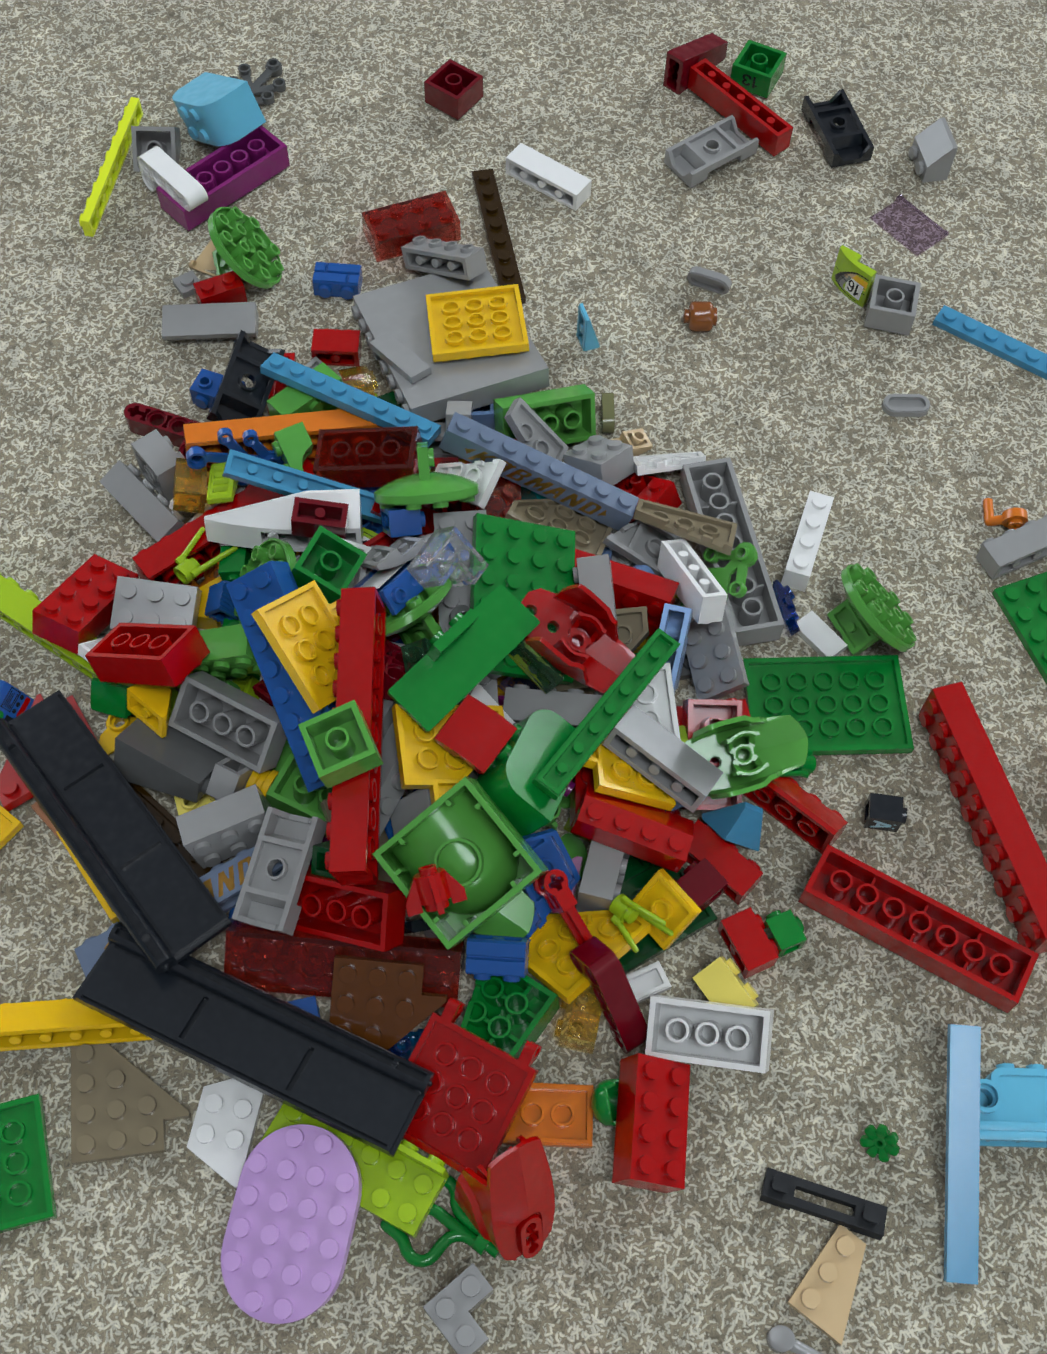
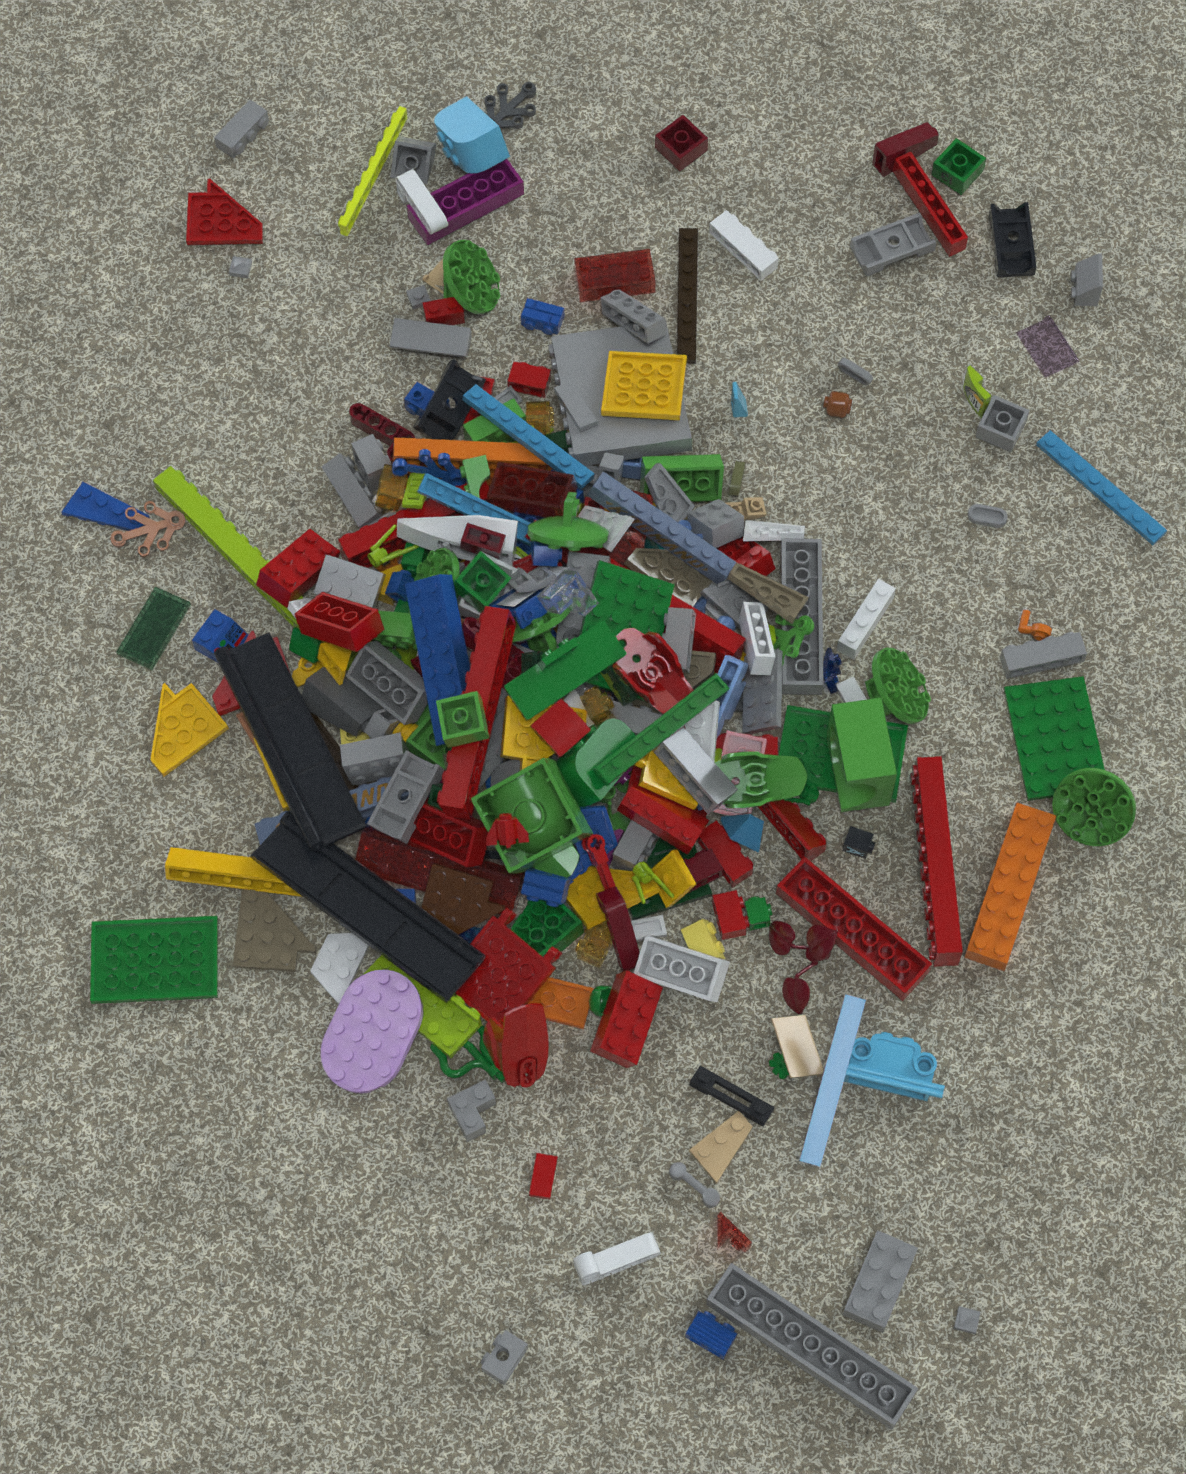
camera: 15 degrees right, 5 degrees up
(303, 637) = (451, 636): yellow wing -> none
(515, 696) = (598, 705): none -> clear yellow brick
(867, 697) = (861, 754): none -> bright green piece
(892, 960) = (819, 947): none -> dark red plant
(895, 1110) = (798, 1046): none -> tan piece

